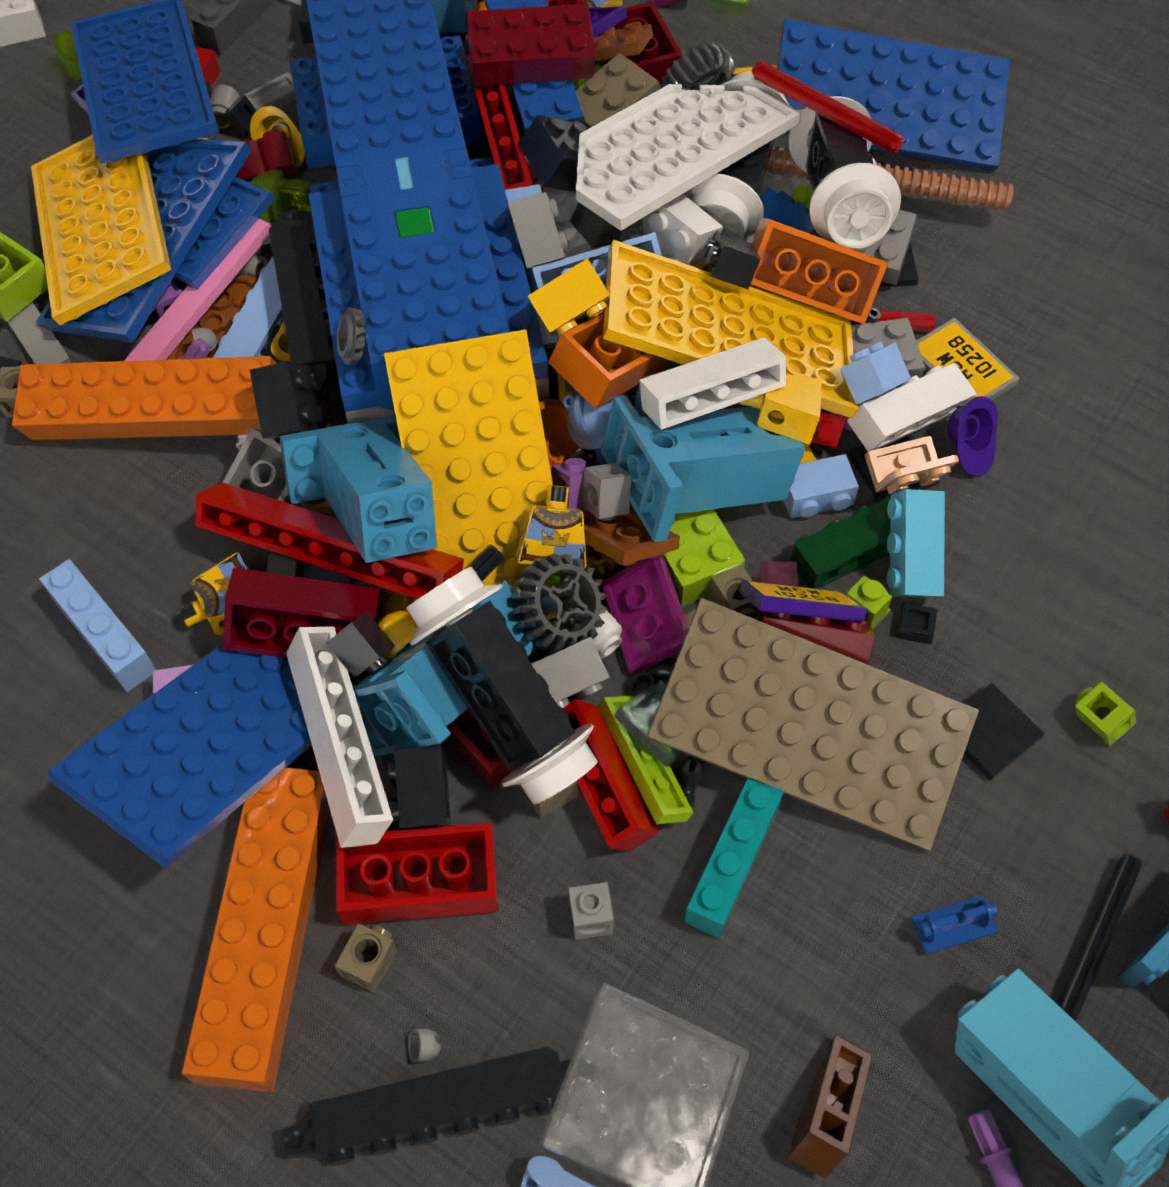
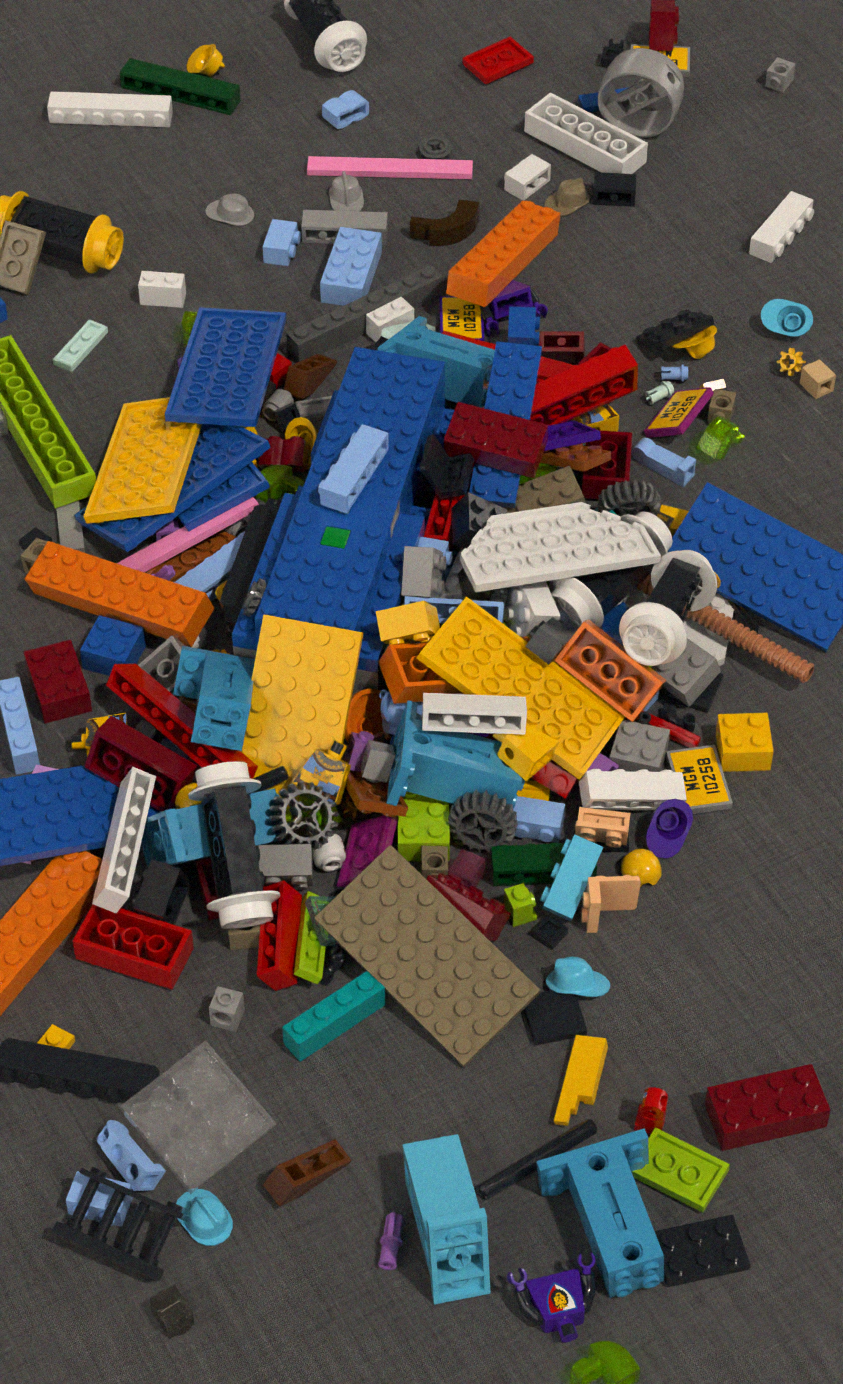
camera: 25 degrees right, 10 degrees down
(123, 544) = (57, 681): none -> dark red brick
(172, 470) = (111, 644): none -> blue brick
(207, 335) = (178, 566): light grey hinge -> none
(240, 62) = (307, 375): none -> reddish brown slope
(288, 399) = (202, 624): black brick -> none
(361, 645) = (165, 792): black brick -> none
(367, 974) = (76, 988): dark tan brick -> none
(380, 1064) = (57, 1037): none -> yellow plate
(393, 128) = (353, 468): none -> light blue brick
(423, 1045) = (87, 1040): light grey hinge -> none
(496, 102) = (446, 474): none -> black bracket
(699, 25) = (664, 461): none -> light blue leg
(769, 515) = (482, 820): none -> dark grey gear
(802, 601) = (464, 878): dark purple tile -> none
(828, 107) = (676, 557): red axle -> none
(875, 371) = (609, 753): light blue brick -> none
(884, 302) = (687, 722): none -> black arm
(955, 924) = (451, 1113): blue hinge -> none
(964, 551) = (608, 895): none -> light nougat bracket
(970, 497) = (642, 864): none -> yellow hair
(988, 300) = (744, 742): none -> yellow brick
(990, 671) = (576, 977): none -> medium azure piece
(1076, 800) = (581, 1076): none -> yellow piece
(1102, 698) = (635, 1034): lime brick -> none

